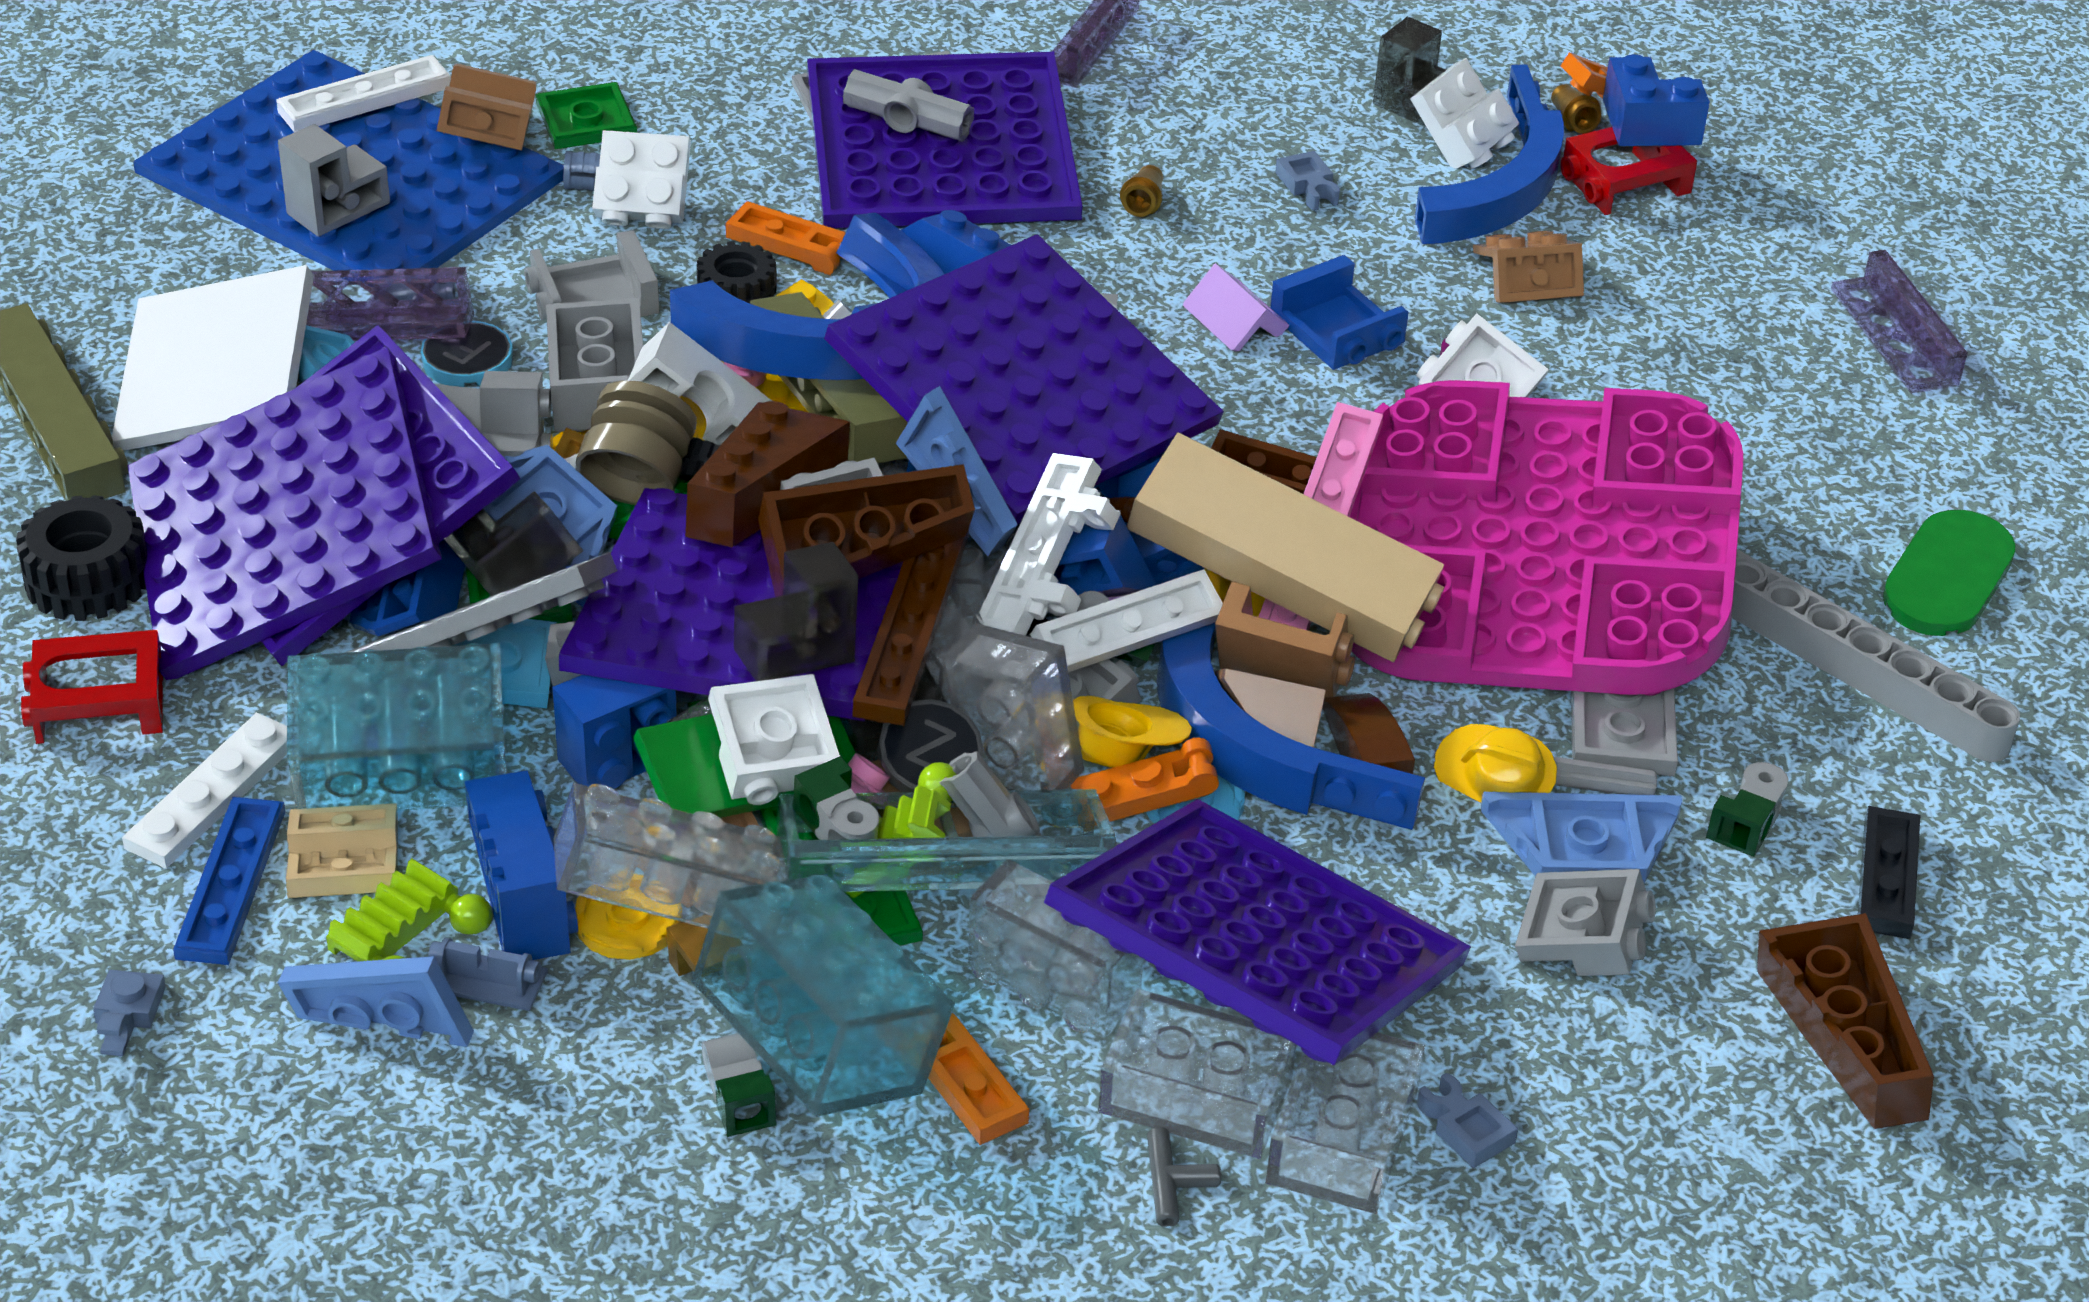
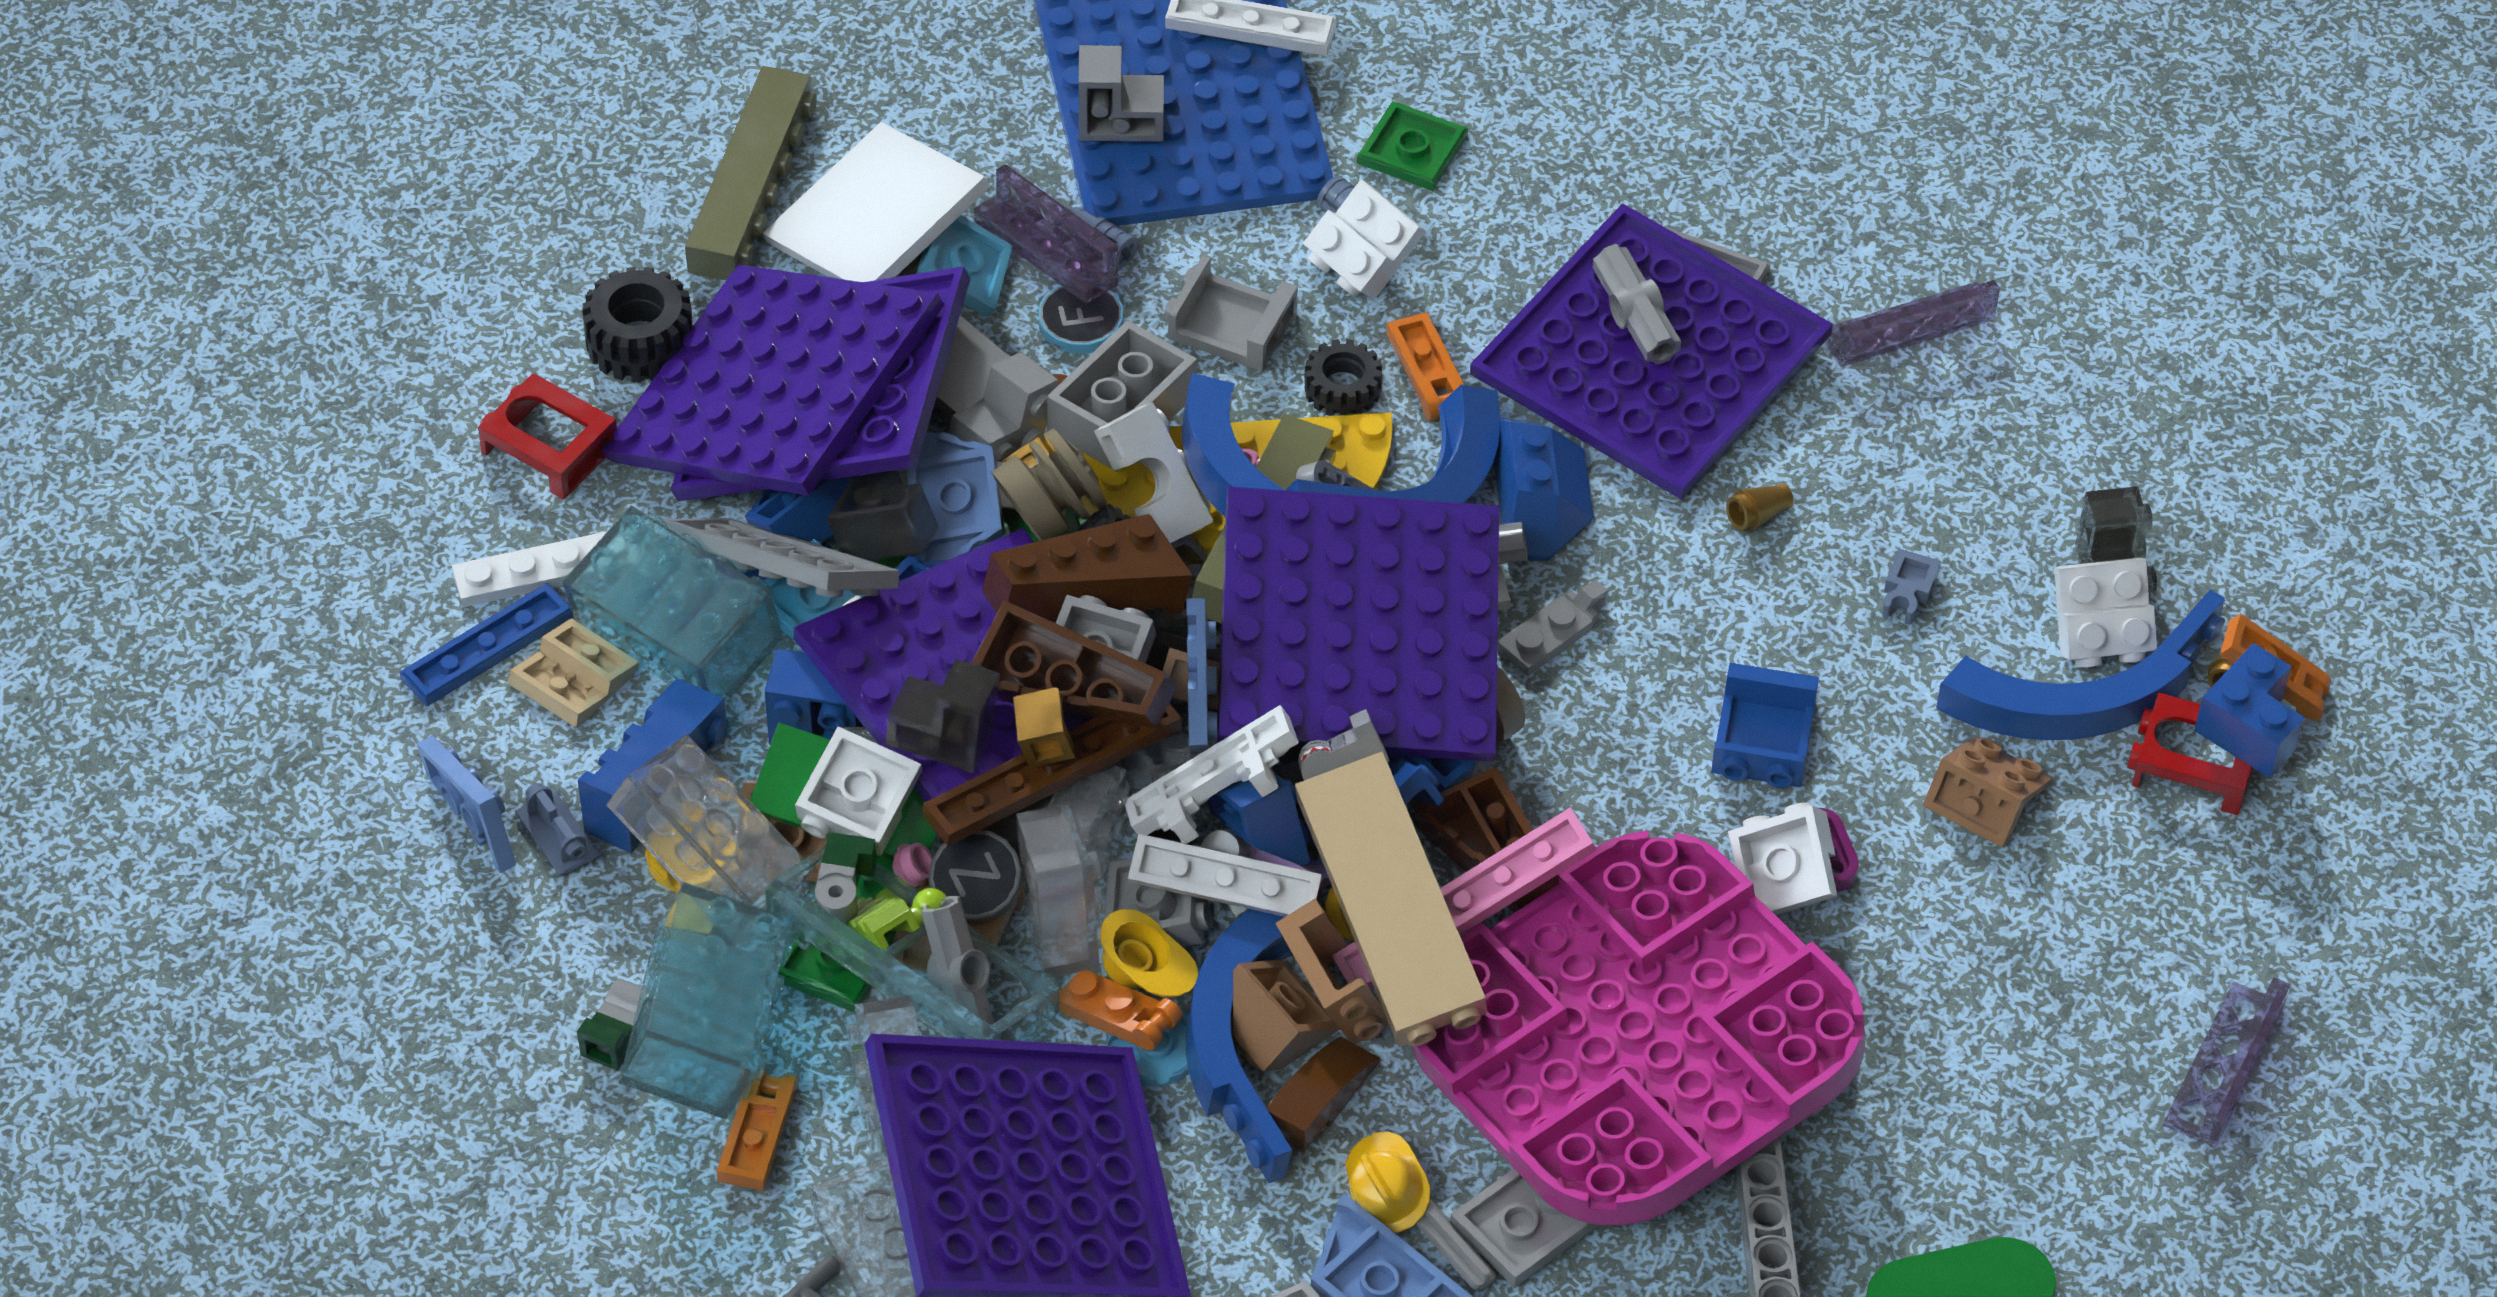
camera: 45 degrees right, 10 degrees up
(126, 1003) = (335, 690): sand blue plate -> none
(403, 912) = (544, 749): lime gear -> none
(487, 106) = (1319, 97): medium nougat panel -> none
(893, 577) = (1042, 728): none -> pearl gold panel
(1130, 462) = (1355, 744): none -> light grey leg
(1231, 309) = (1694, 664): lavender panel -> none

